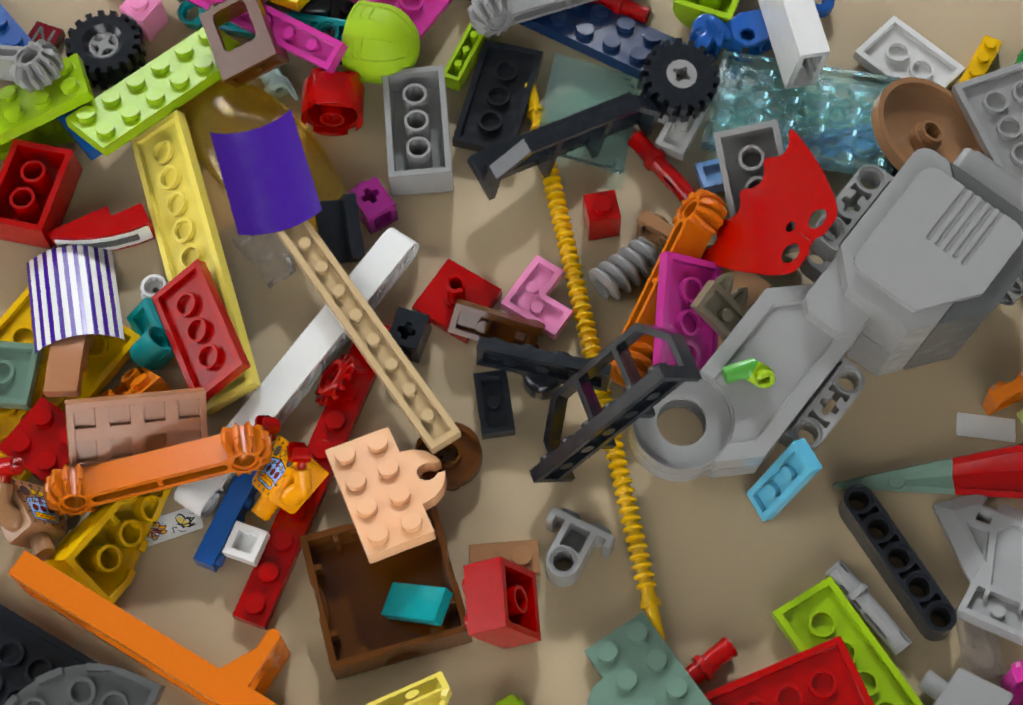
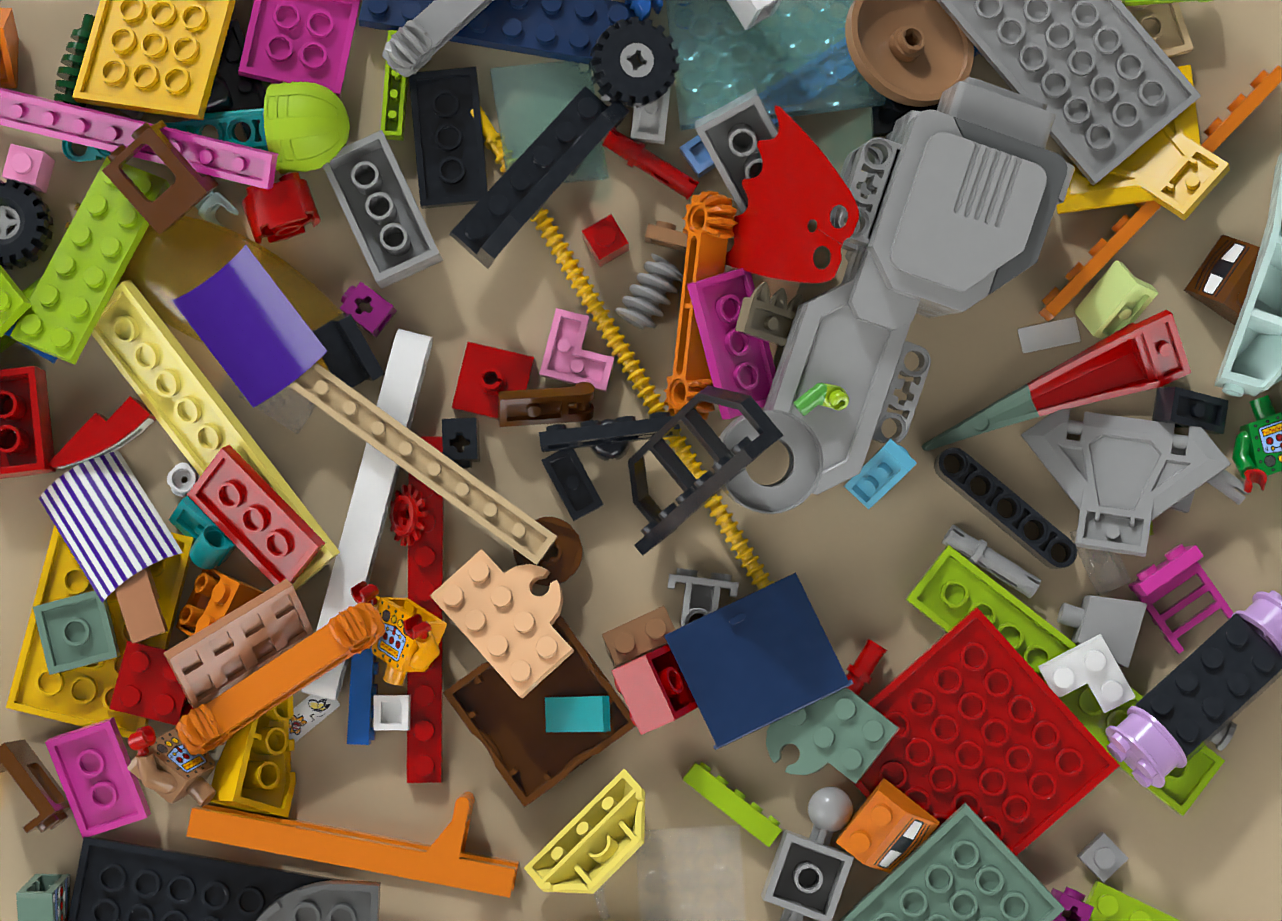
camera: 25 degrees left, 20 degrees up
(607, 612) = (760, 663): none -> dark blue piece

